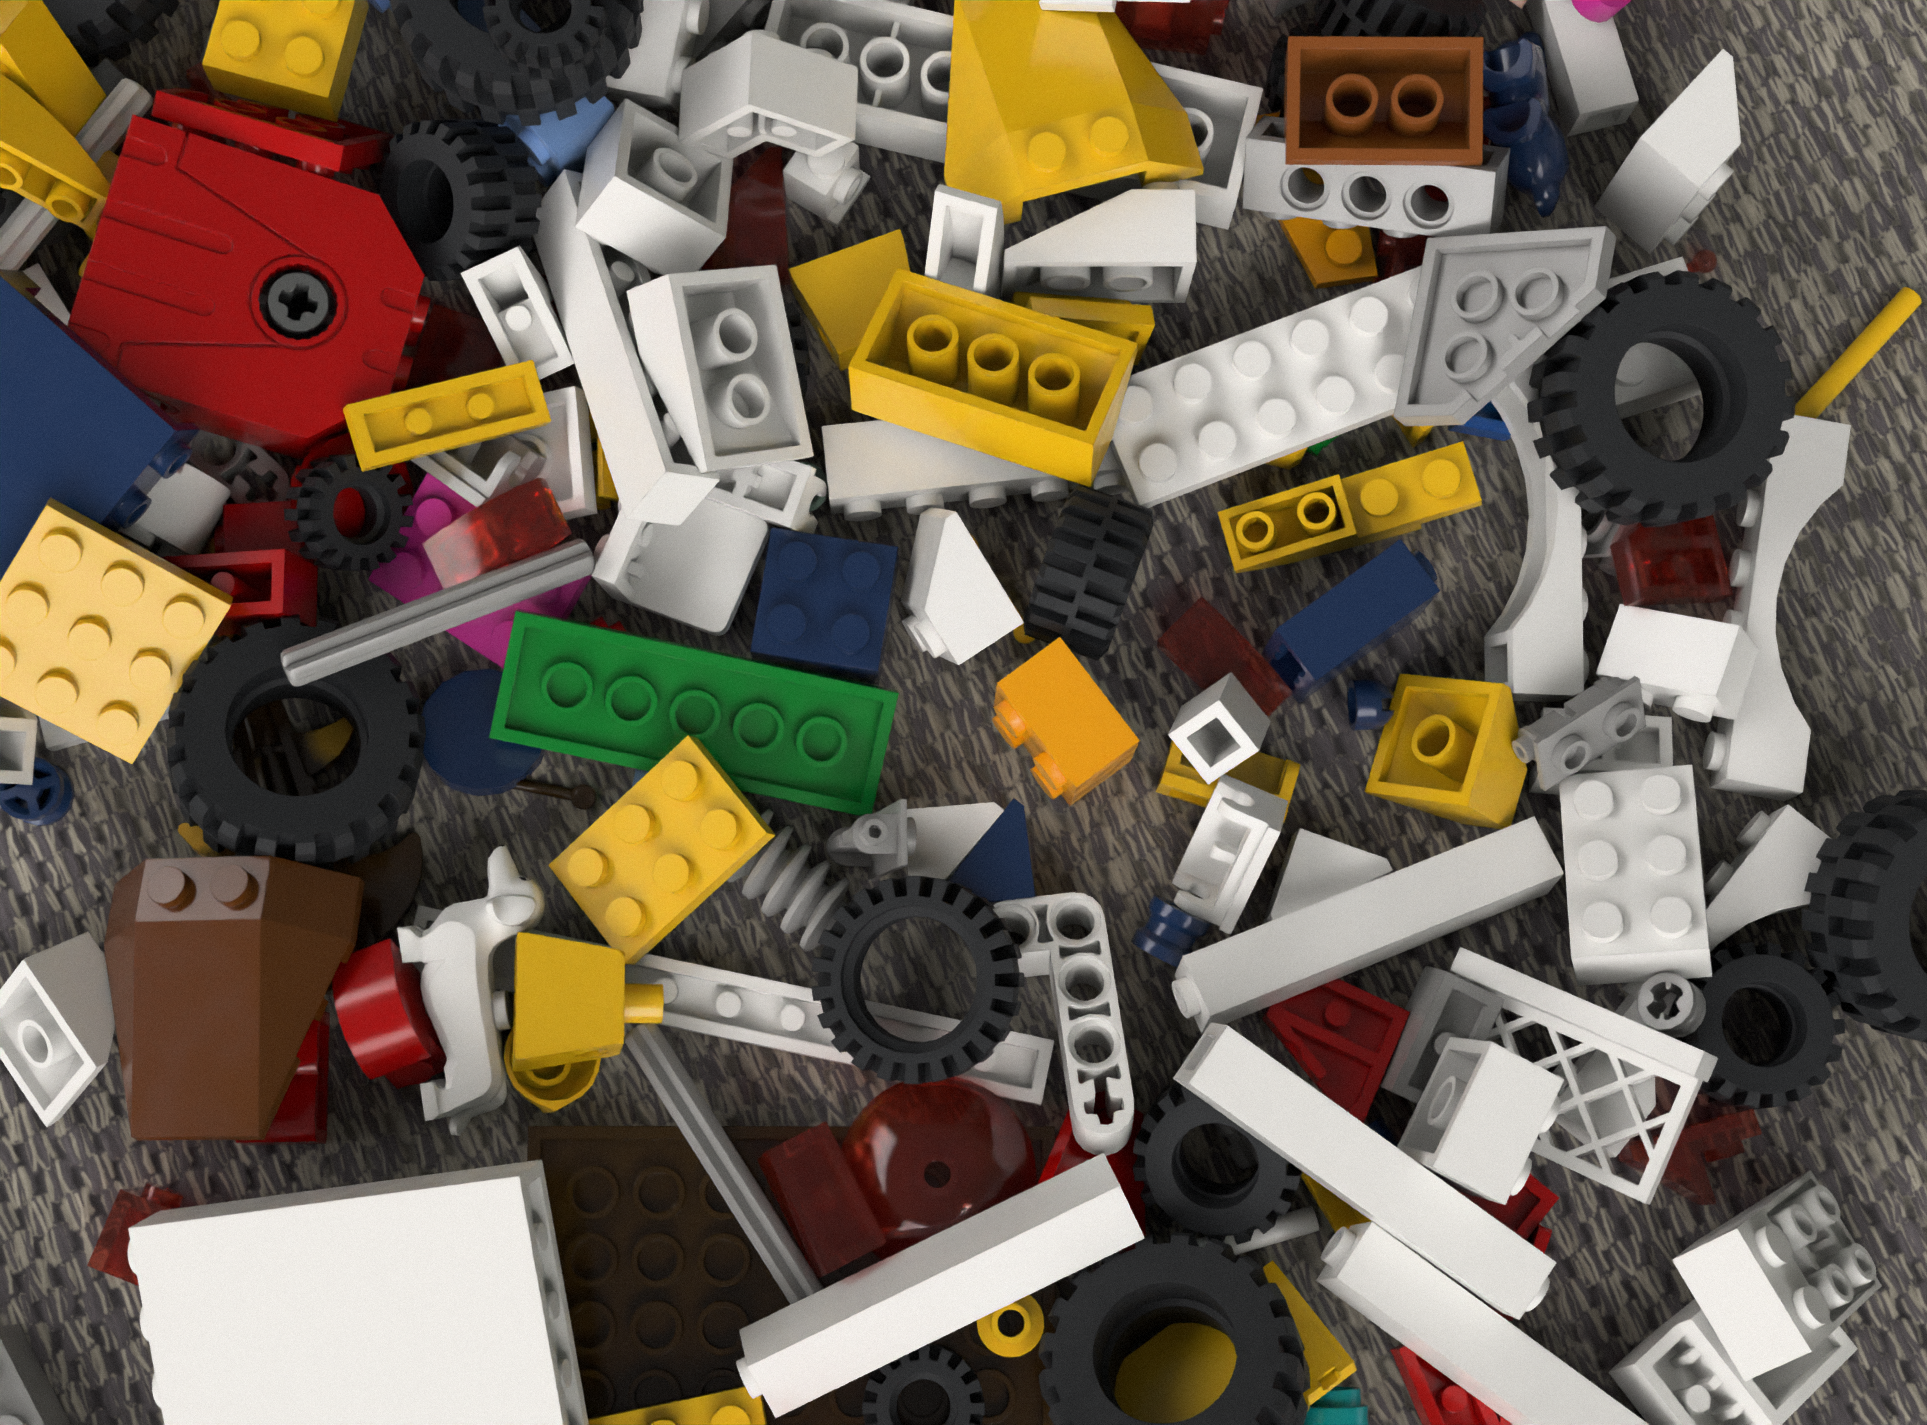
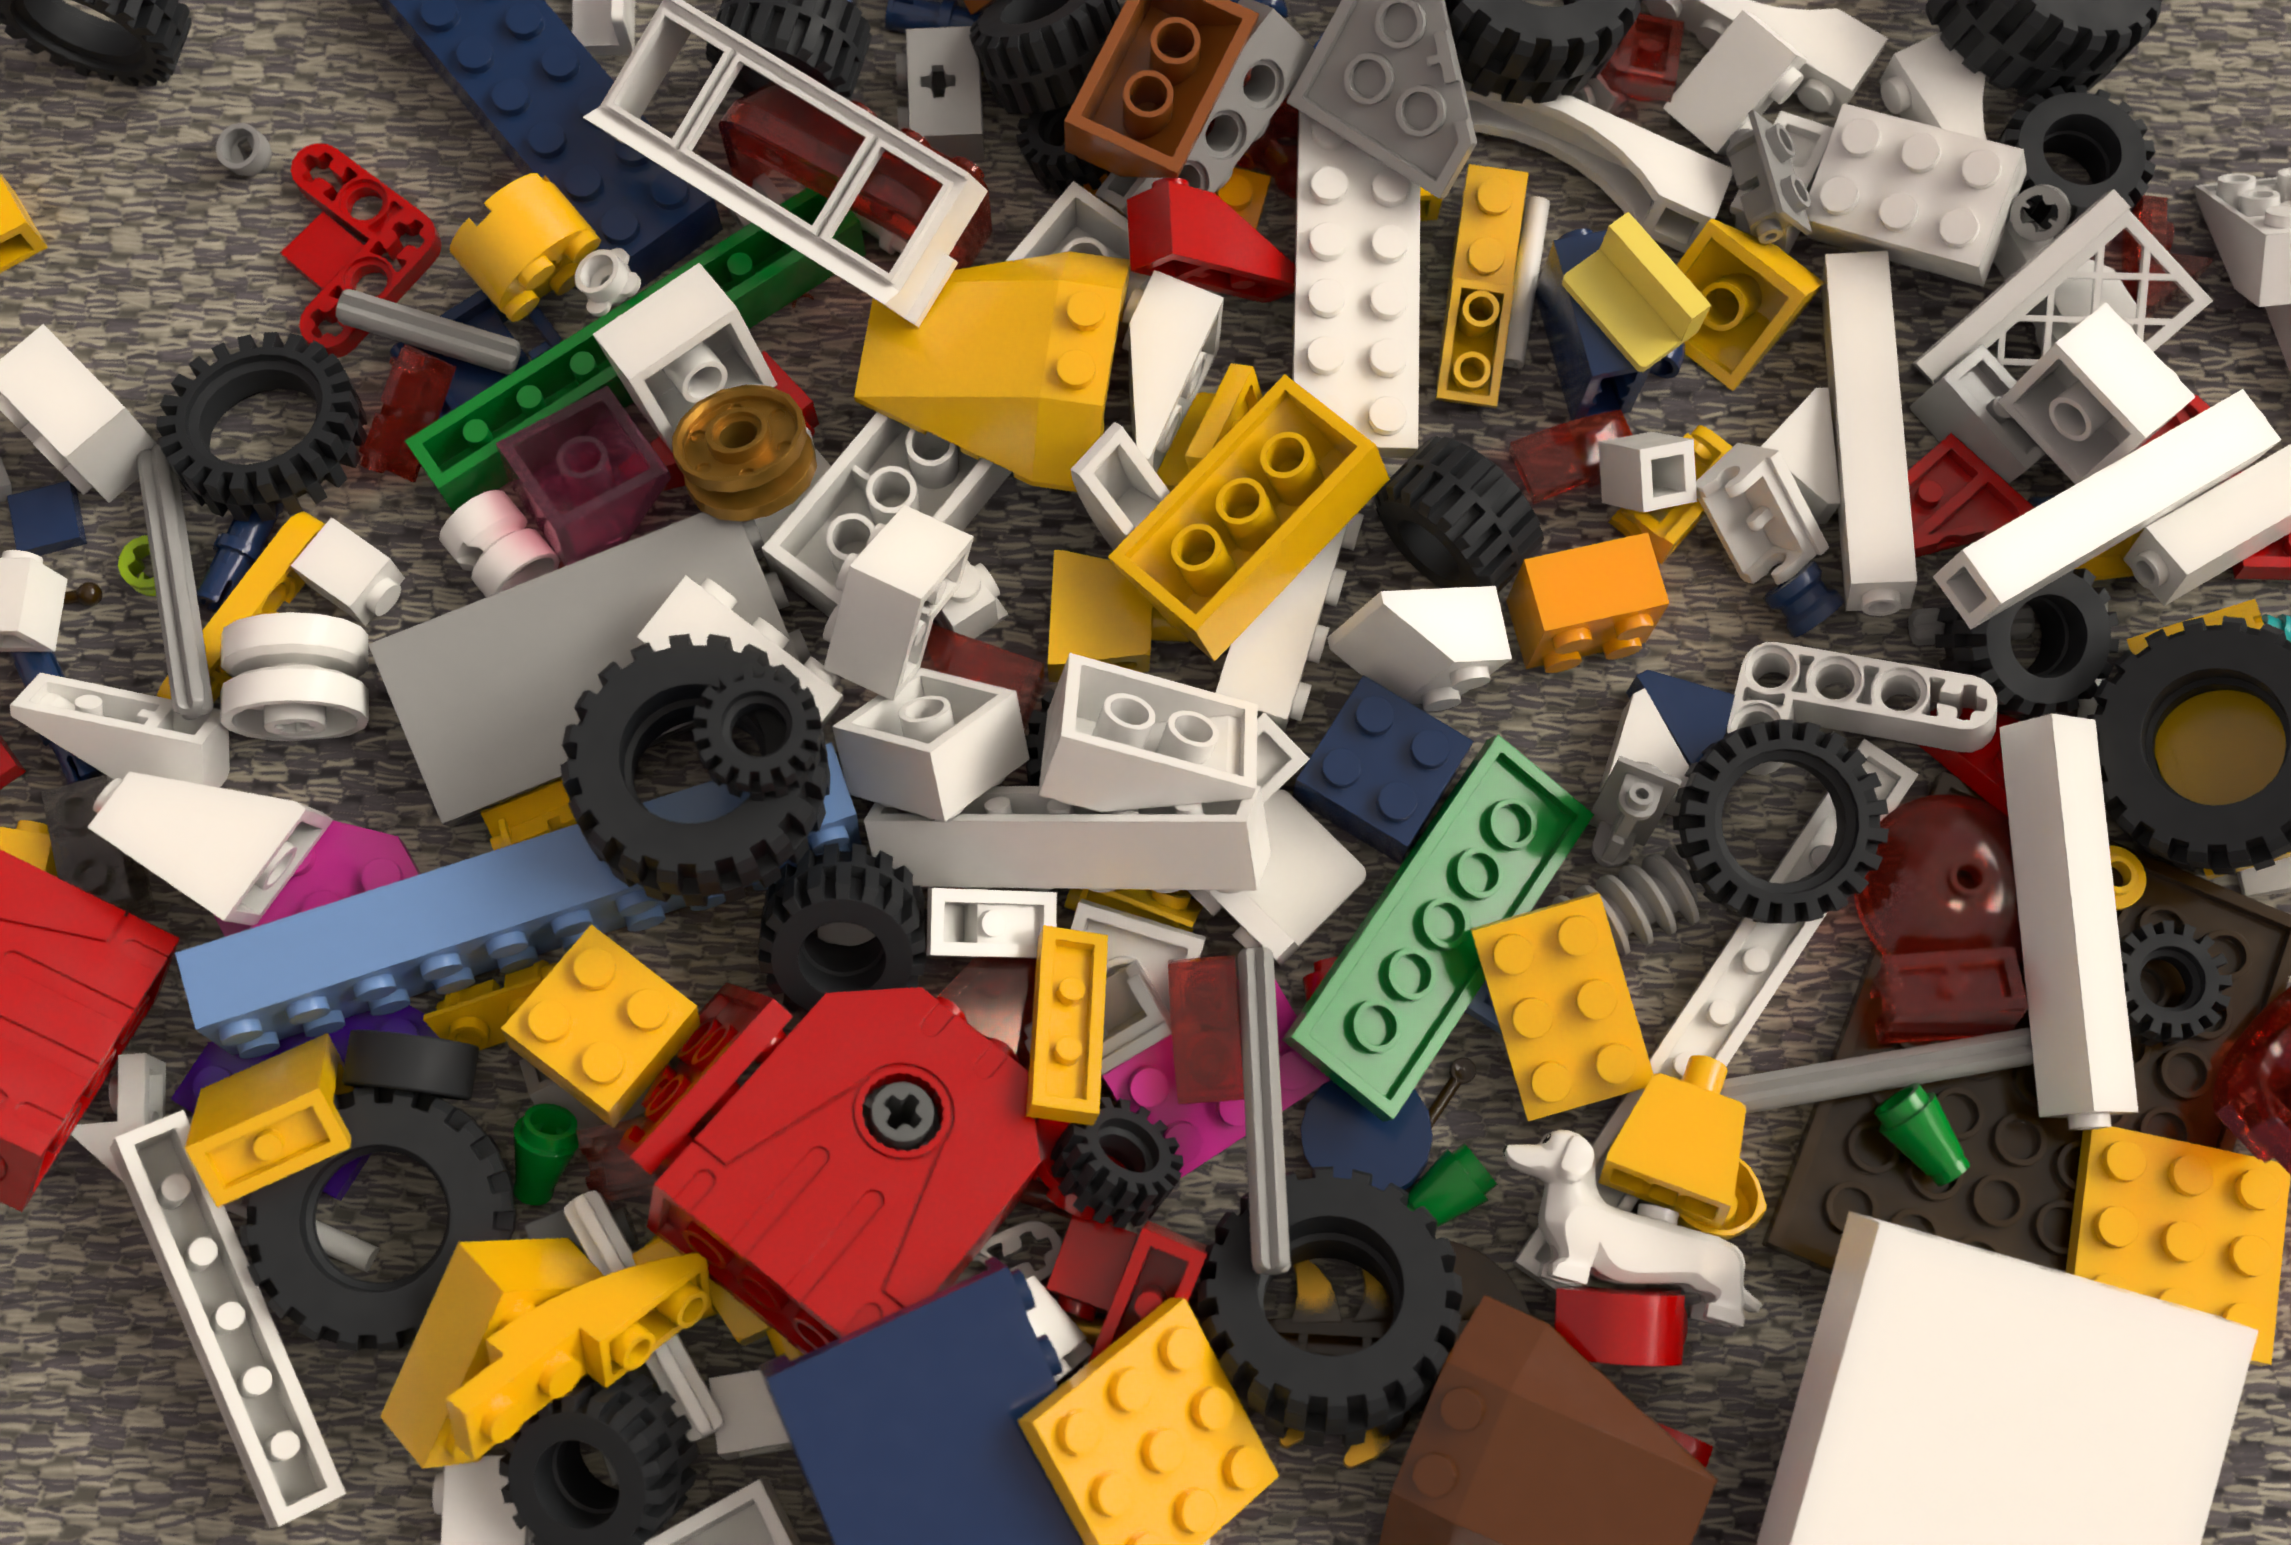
camera: 65 degrees left, 5 degrees down
(175, 45) = (542, 1150): none -> green cone
(462, 822) = (1452, 1185): none -> green cone
(680, 1226) = (1922, 1133): none -> green cone
(1251, 222) = (1203, 243): none -> red slope
(1351, 559) = (1526, 279): none -> white piece
(1368, 632) = (1637, 294): none -> light yellow panel

